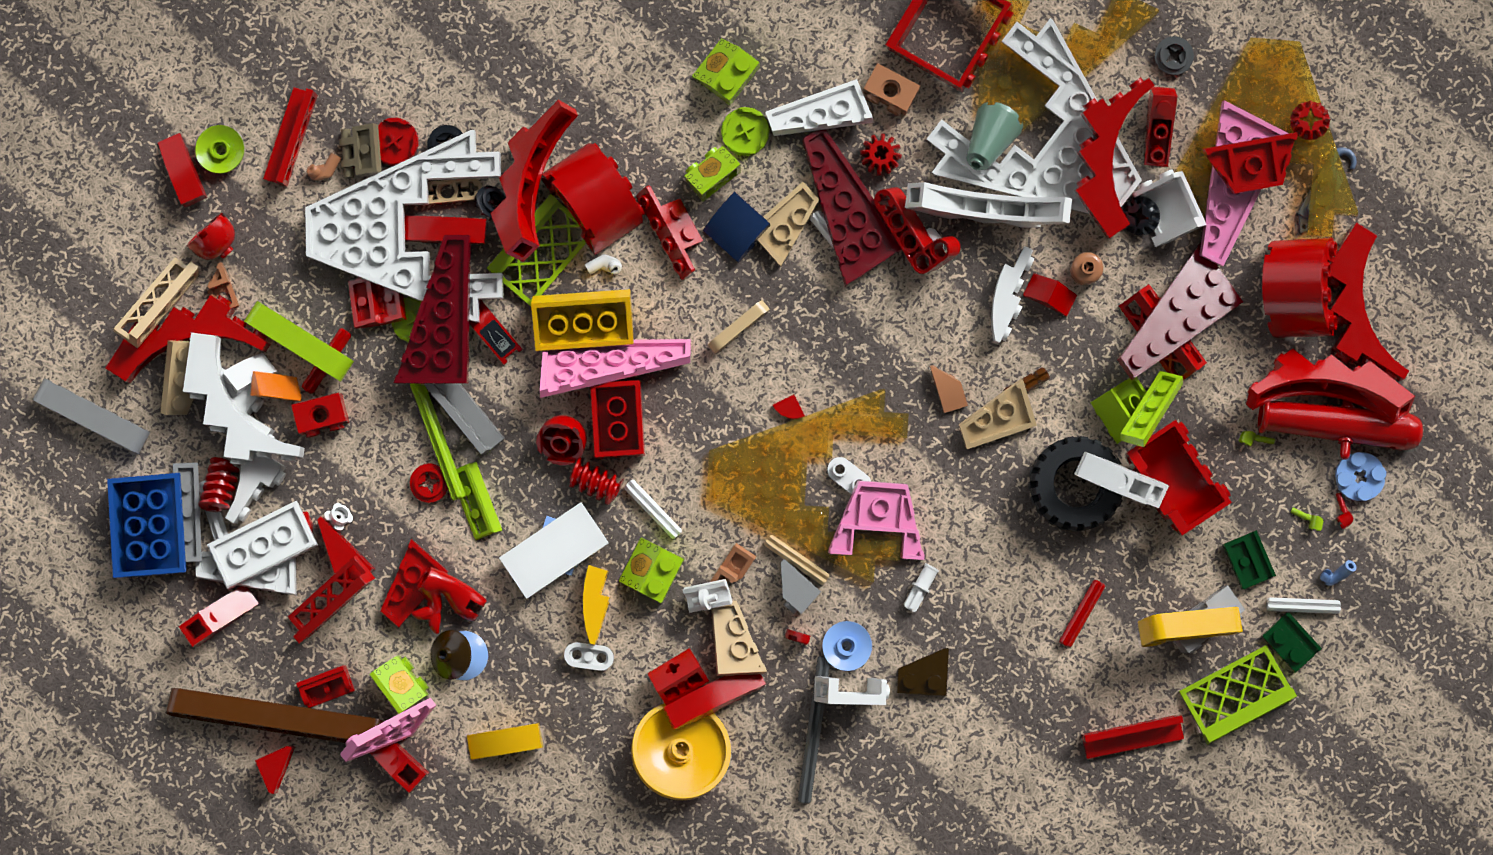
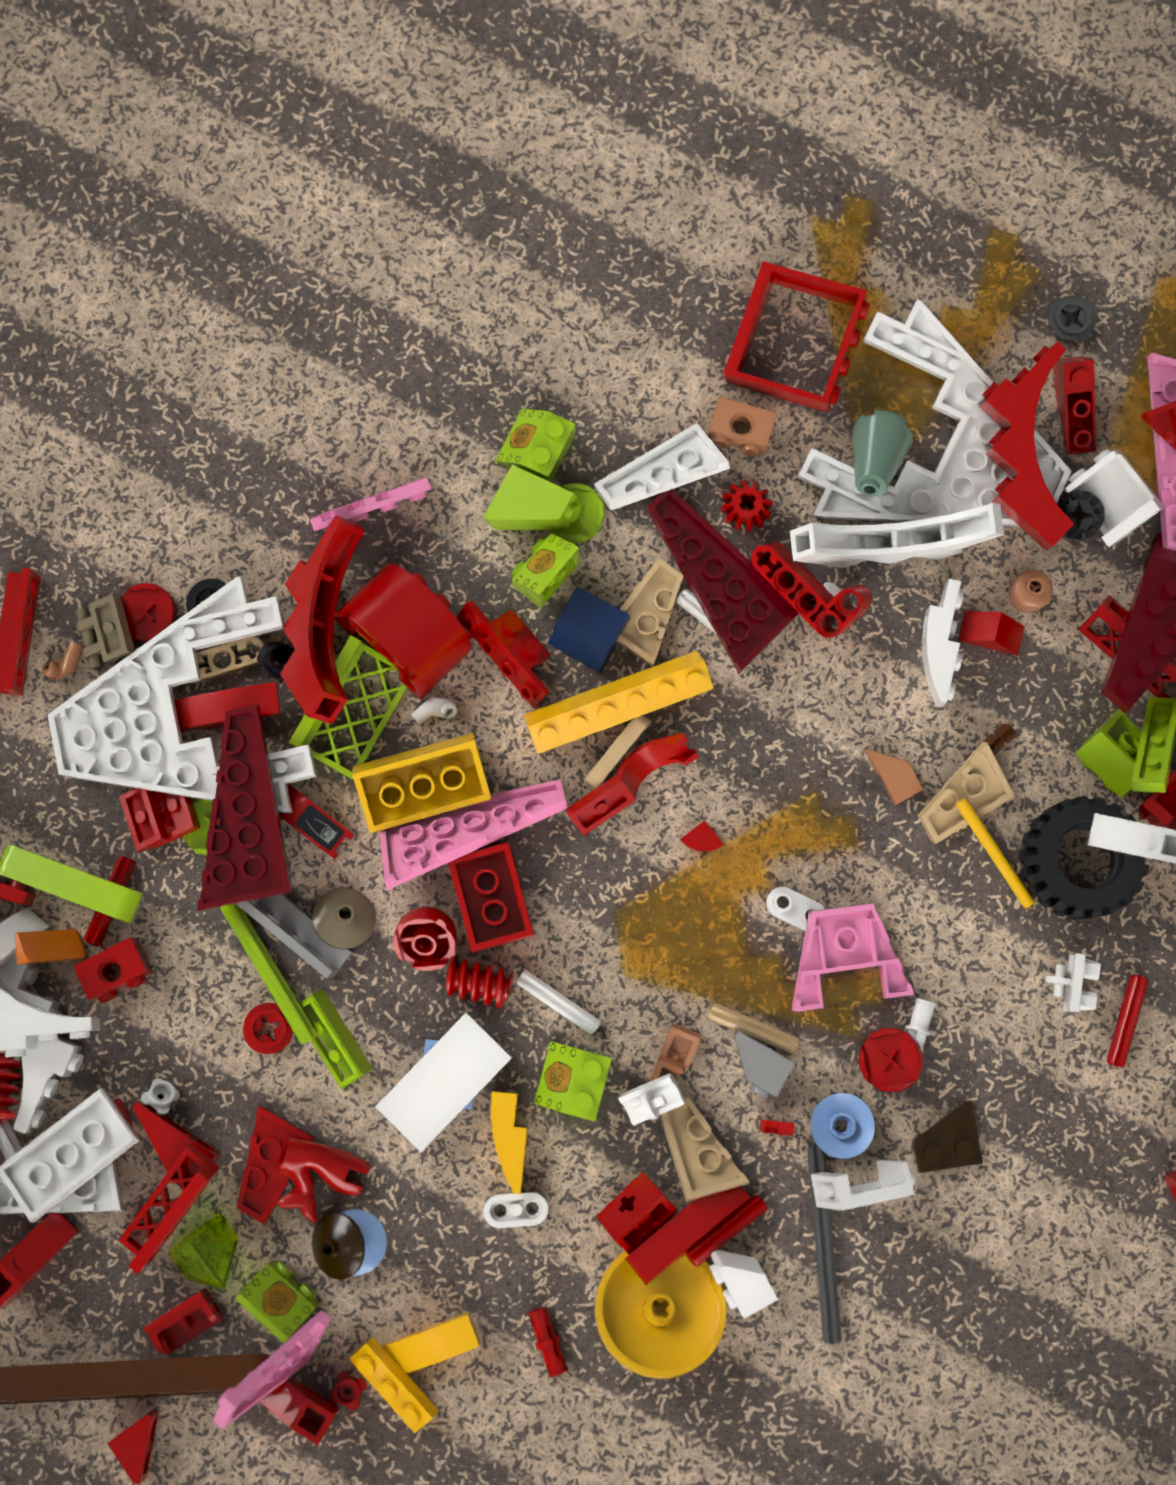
camera: 15 degrees left, 5 degrees down
(352, 639) = (207, 1253): none -> clear neon green slope
(430, 763) = (339, 1395): none -> red plate
(472, 763) = (394, 1385): none -> yellow plate
(498, 421) = (344, 932): none -> dark tan dish
(592, 757) = (547, 1341): none -> red pin
(594, 91) = (385, 501): none -> bright pink wing
(712, 118) = (531, 504): none -> lime slope
(736, 356) = (622, 788): none -> red piece
(742, 704) = (726, 1230): none -> red axle
(746, 288) = (618, 701): none -> yellow brick
(747, 742) = (745, 1282): none -> white slope
(895, 604) = (891, 1059): none -> red tile
(1010, 465) = (995, 853): none -> yellow bar
(1053, 566) = (1077, 970): none -> white hips

